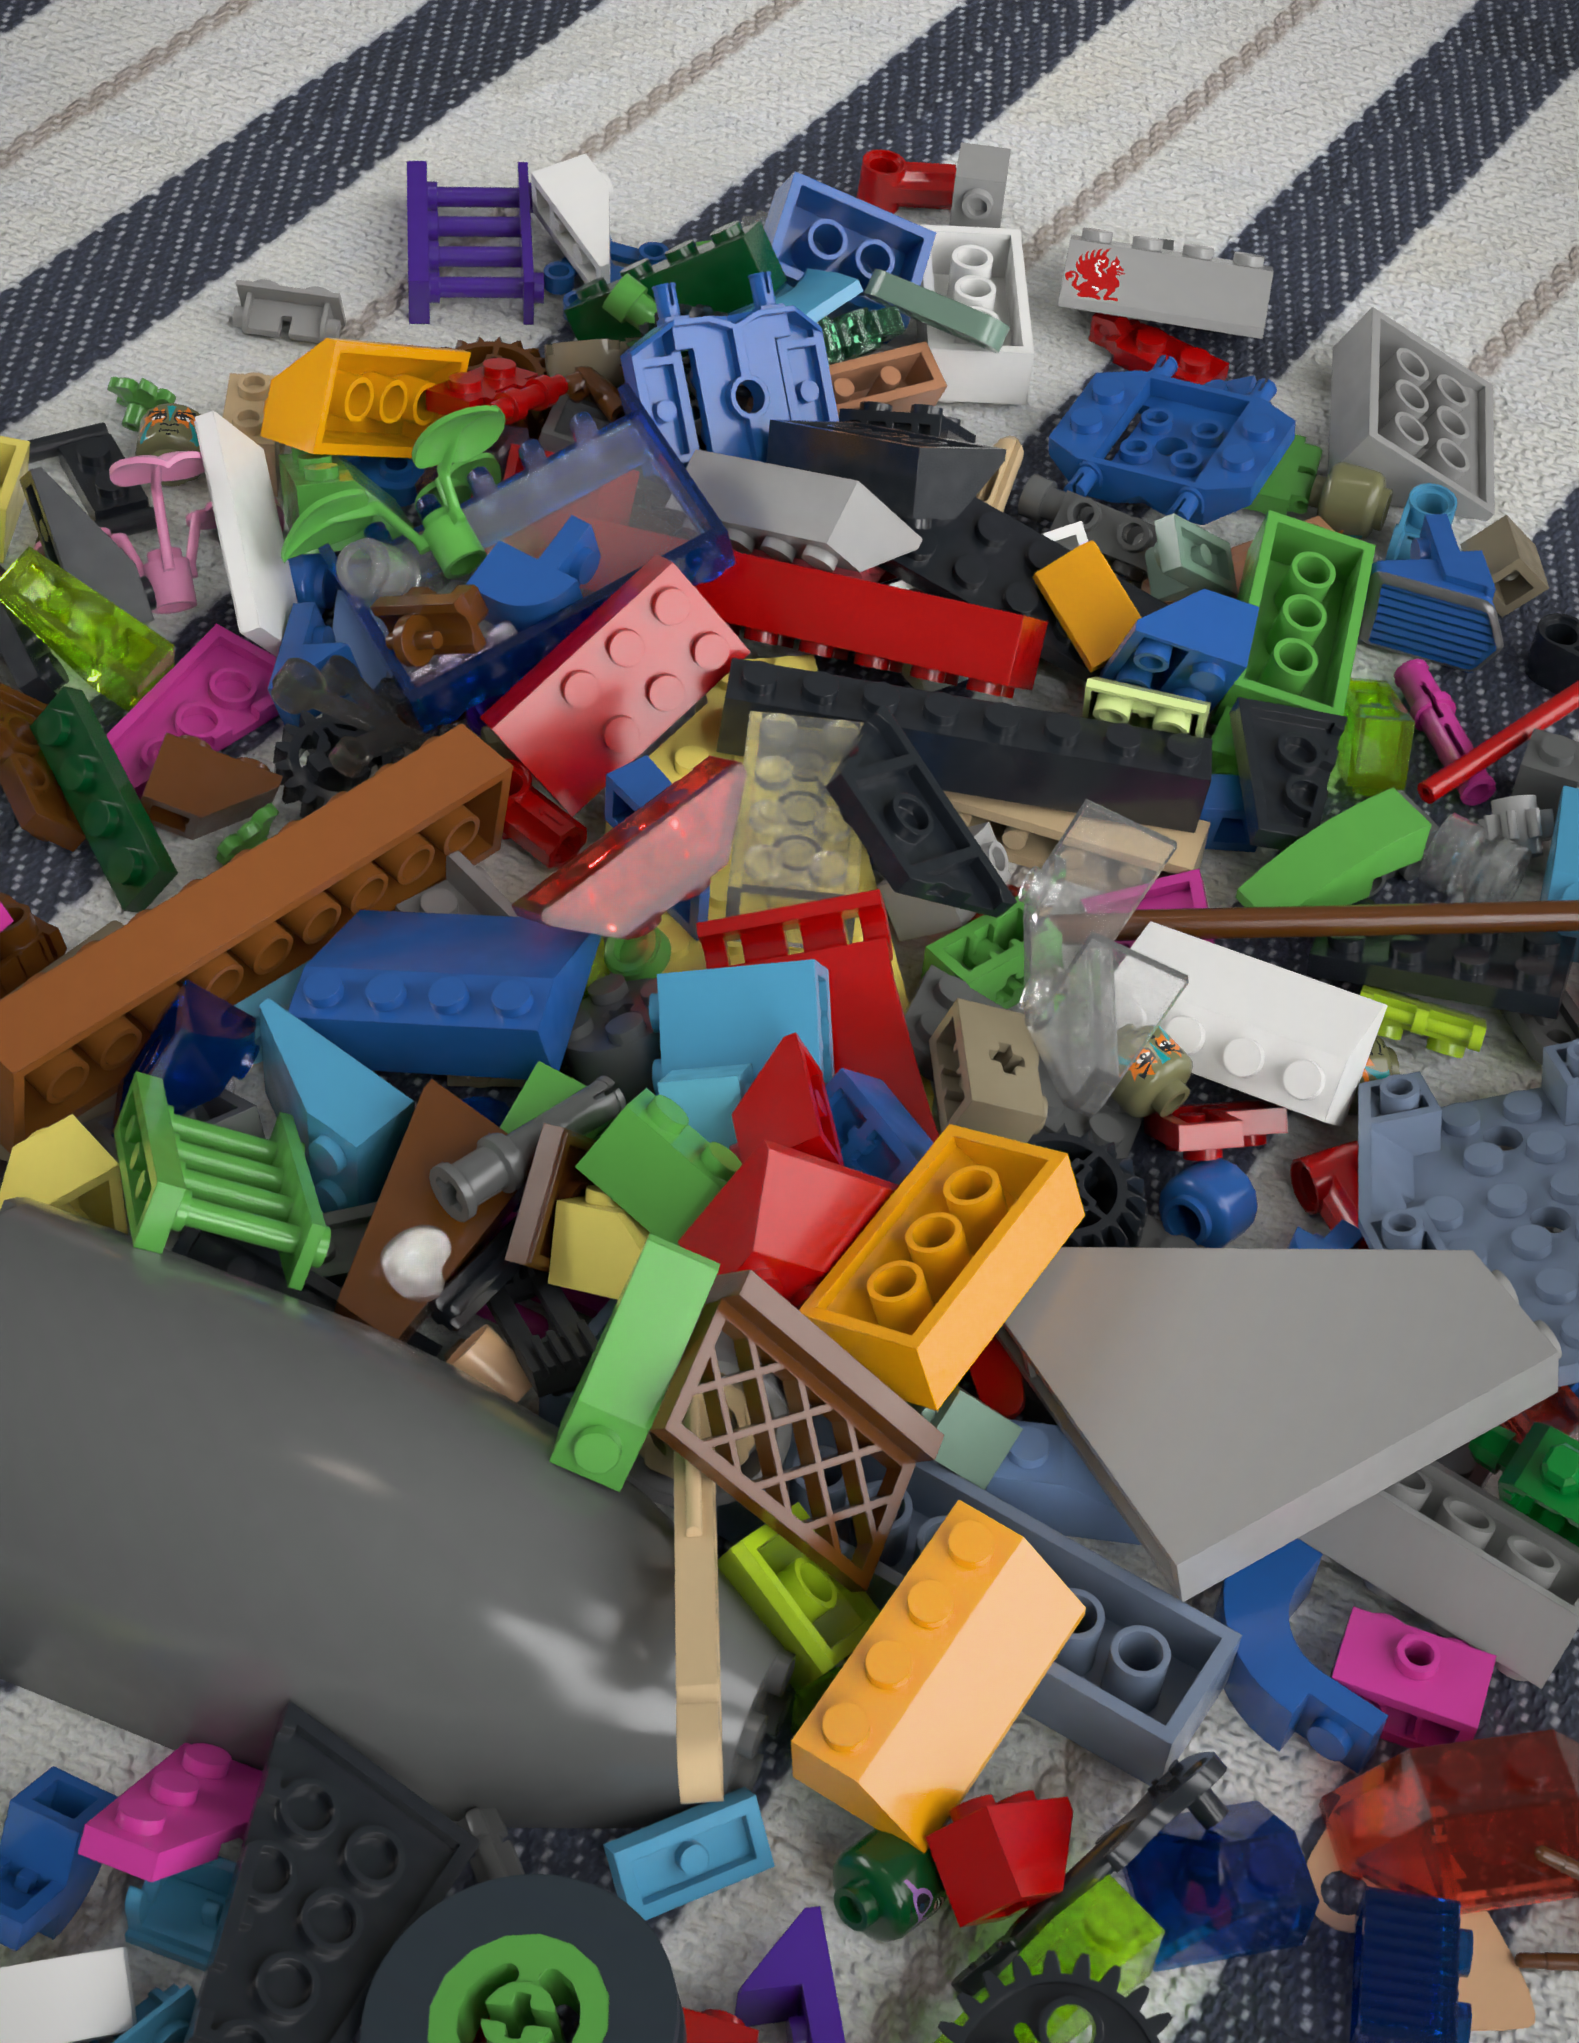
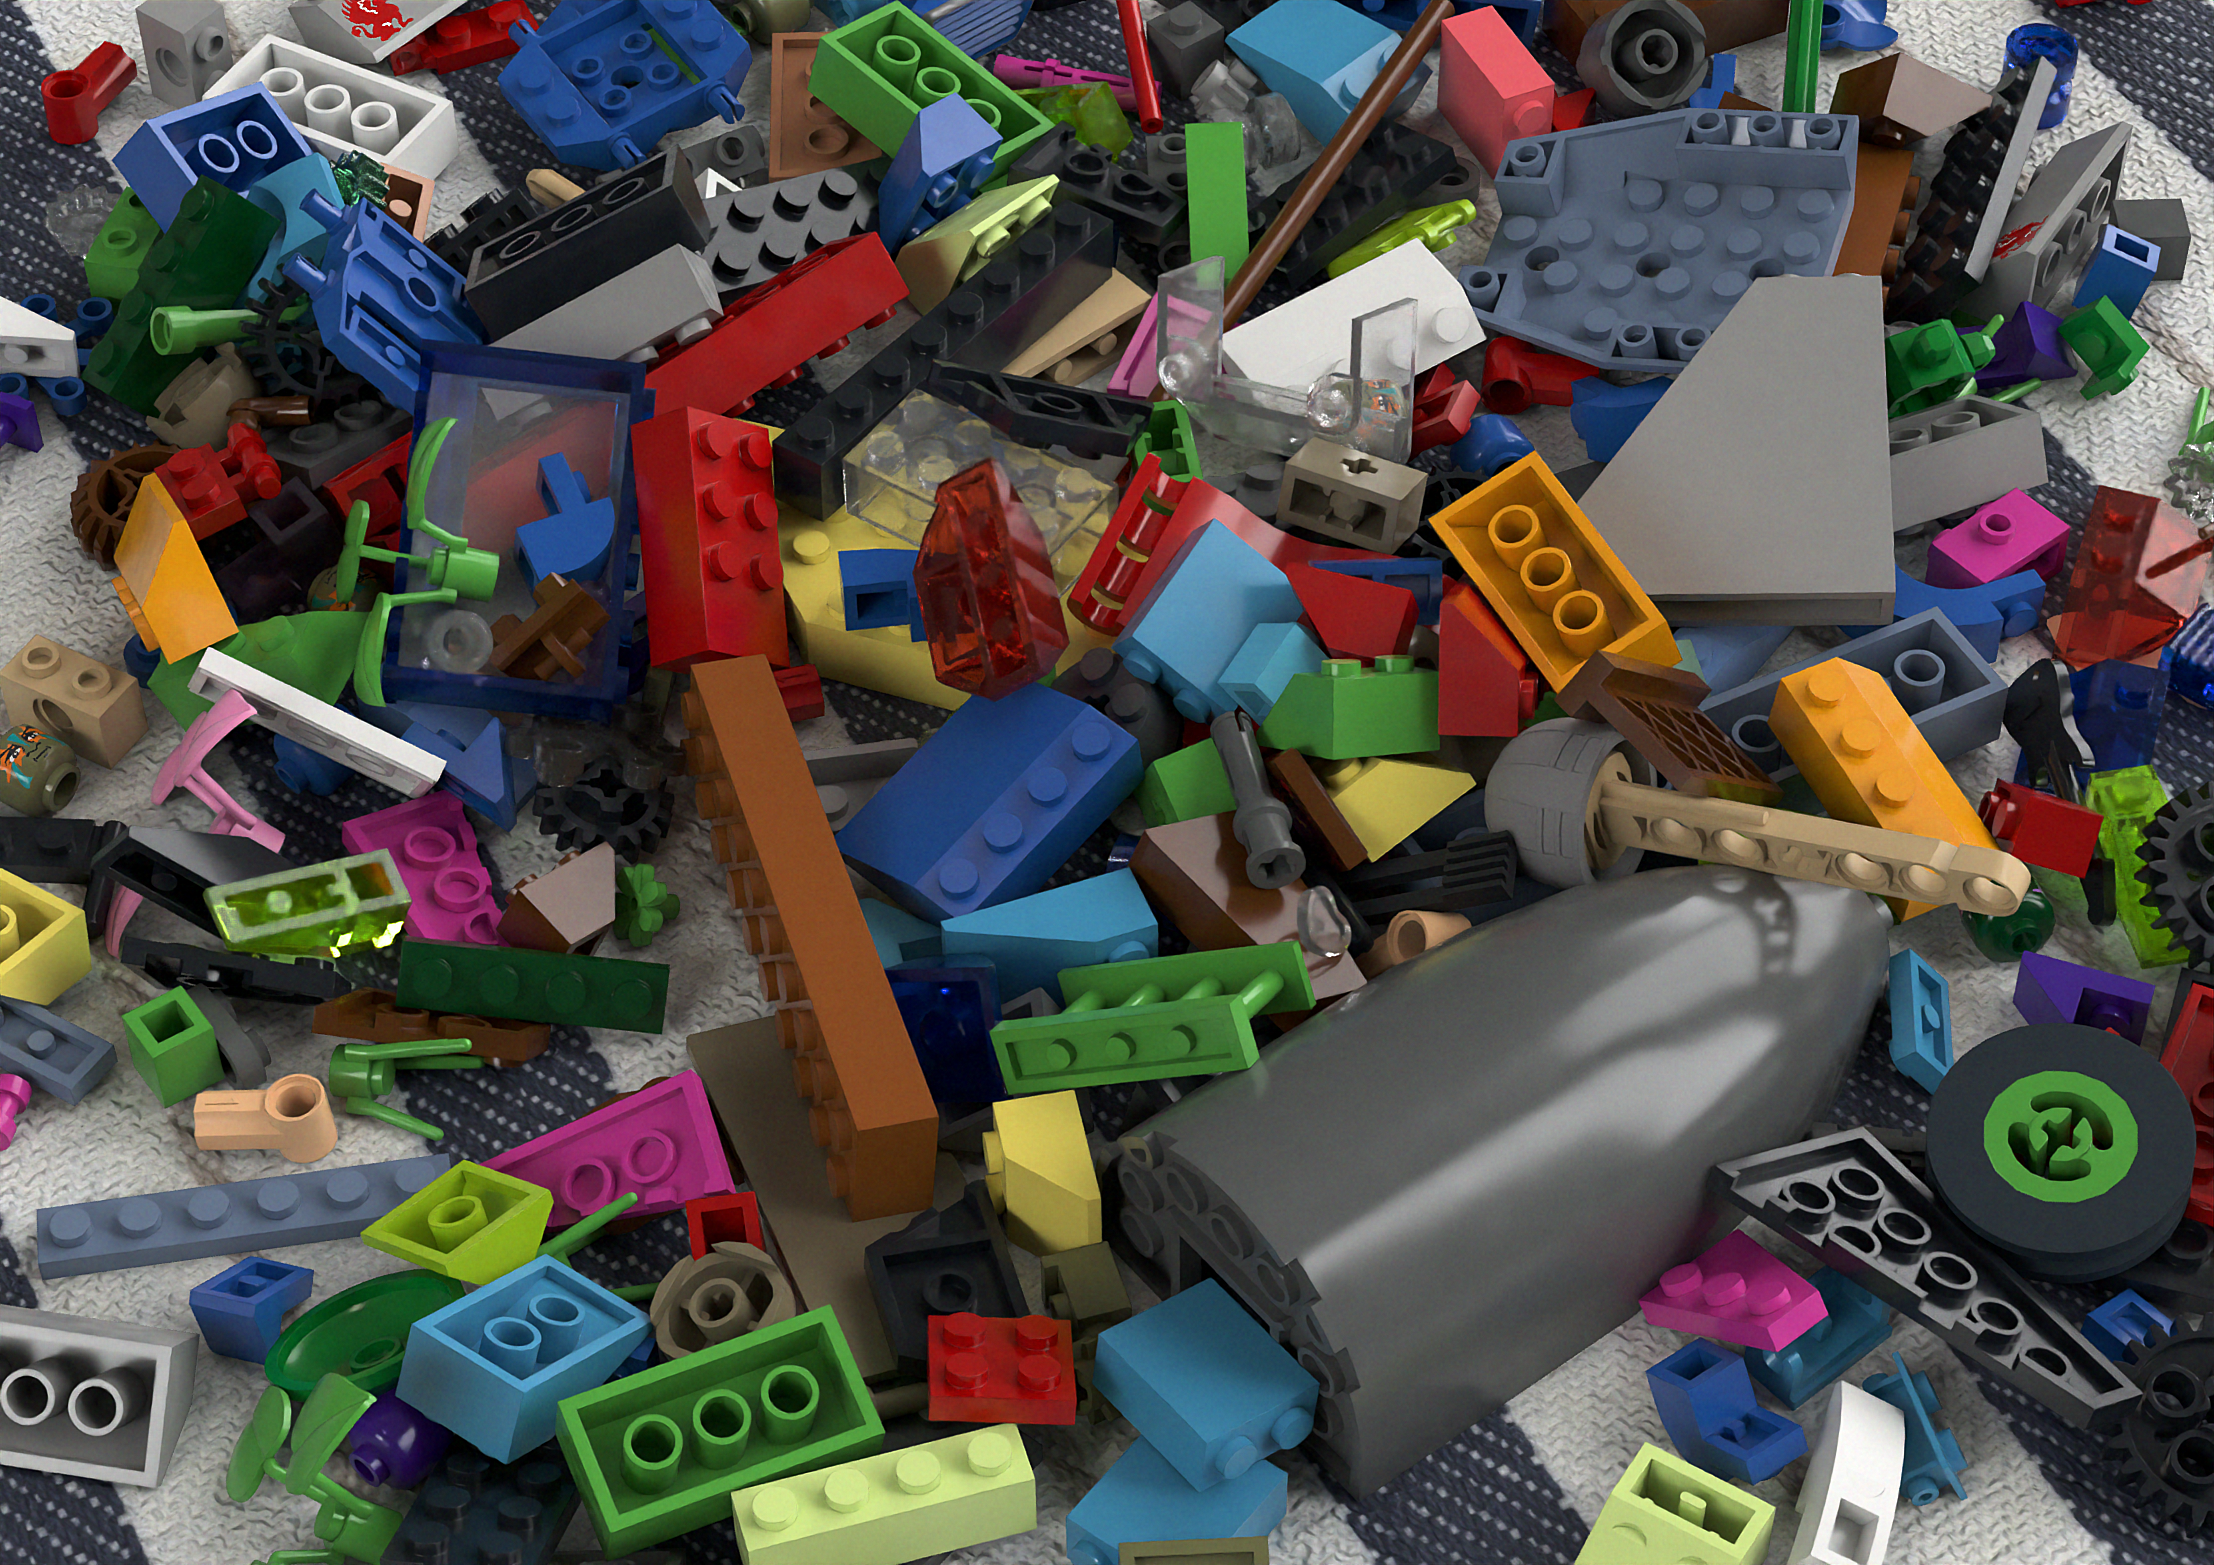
camera: 55 degrees left, 0 degrees up
(633, 1363) = (1602, 792): bright green slope -> none
(937, 310) = (368, 128): sand green beam -> none
(1088, 603) = (827, 201): light orange slope -> none
(1188, 561) = (794, 138): sand green slope -> none

